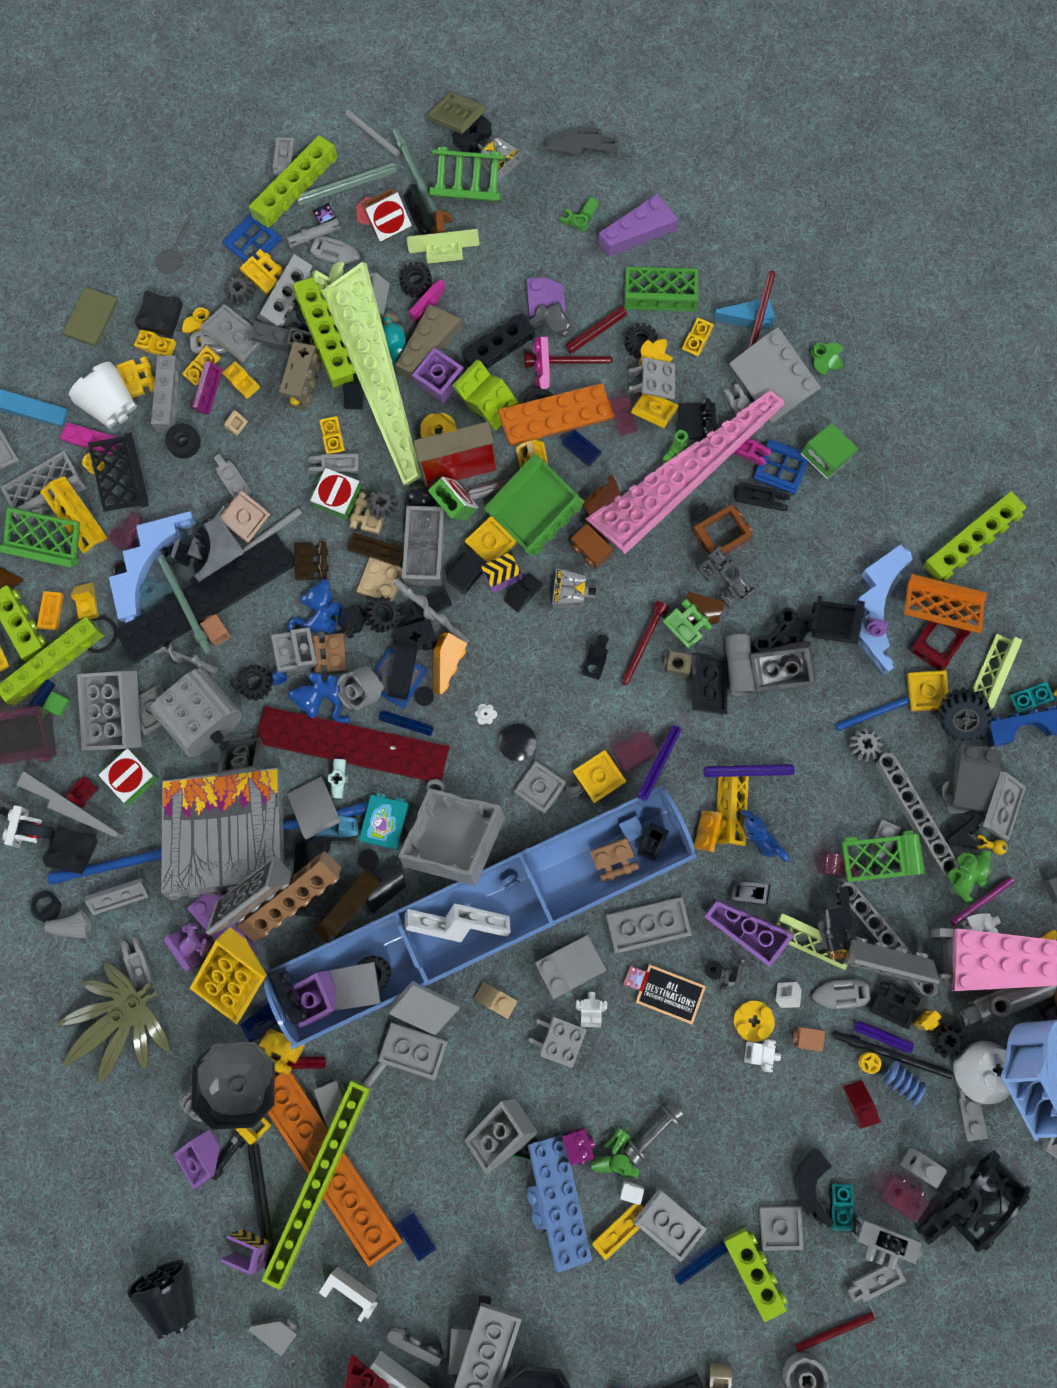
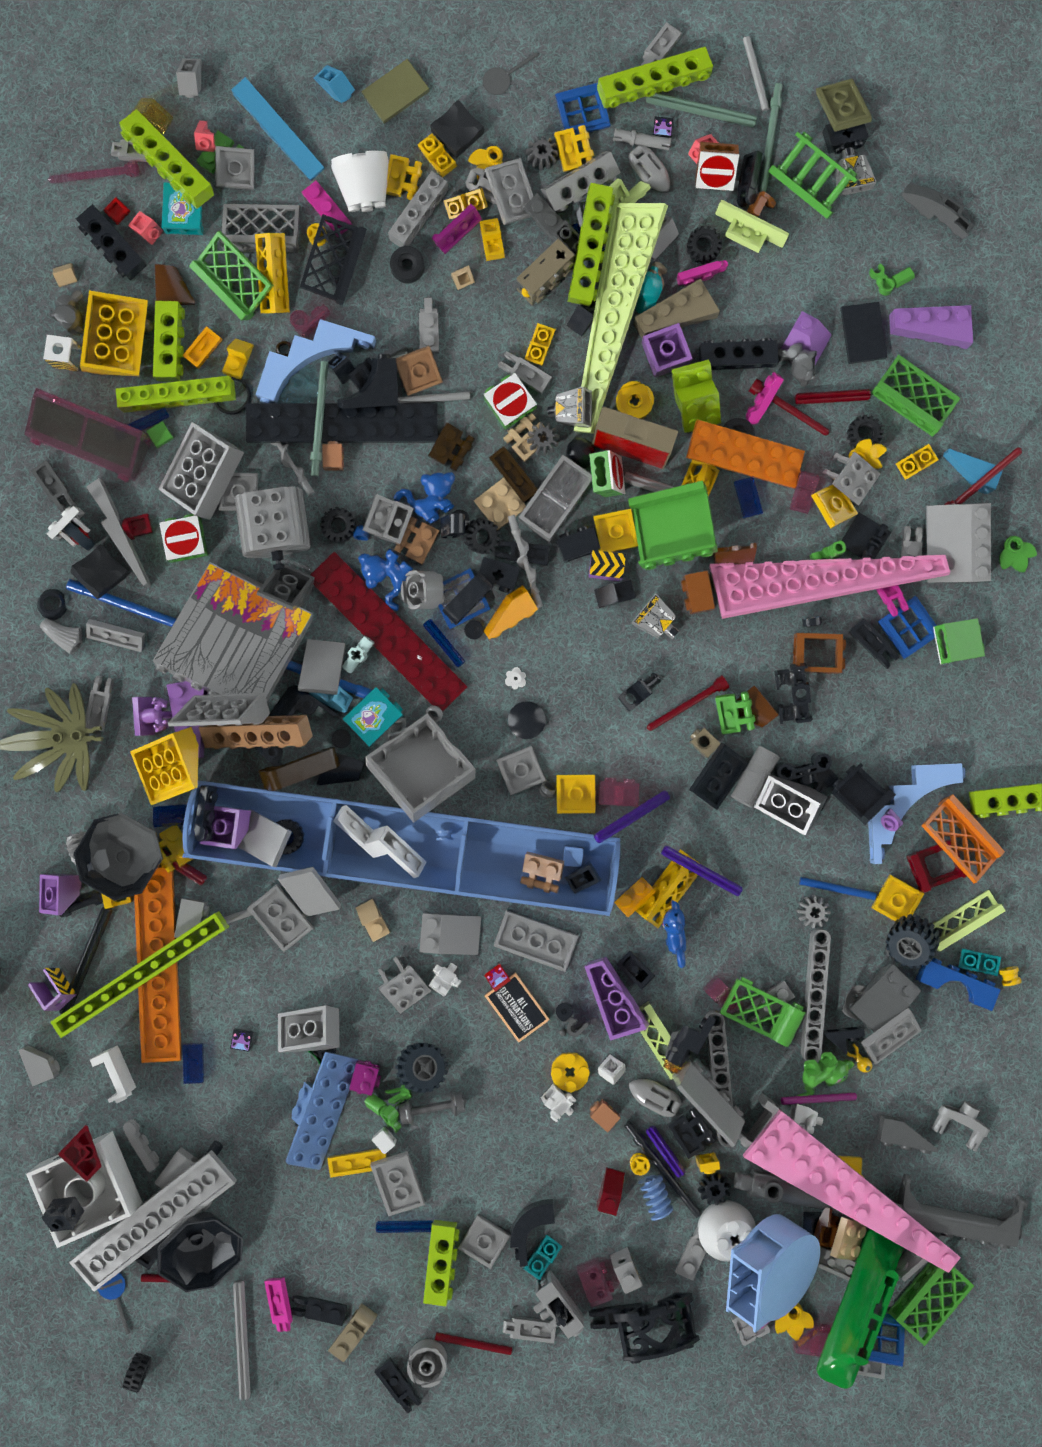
camera: 25 degrees right, 10 degrees up
(37, 339) = (335, 83): none -> dark azure slope
(391, 466) = (573, 408): none -> light grey torso
(446, 1186) = (241, 1040): none -> tile
(587, 267) = (863, 332): none -> black tile
(622, 1102) = (421, 1067): none -> black wheel

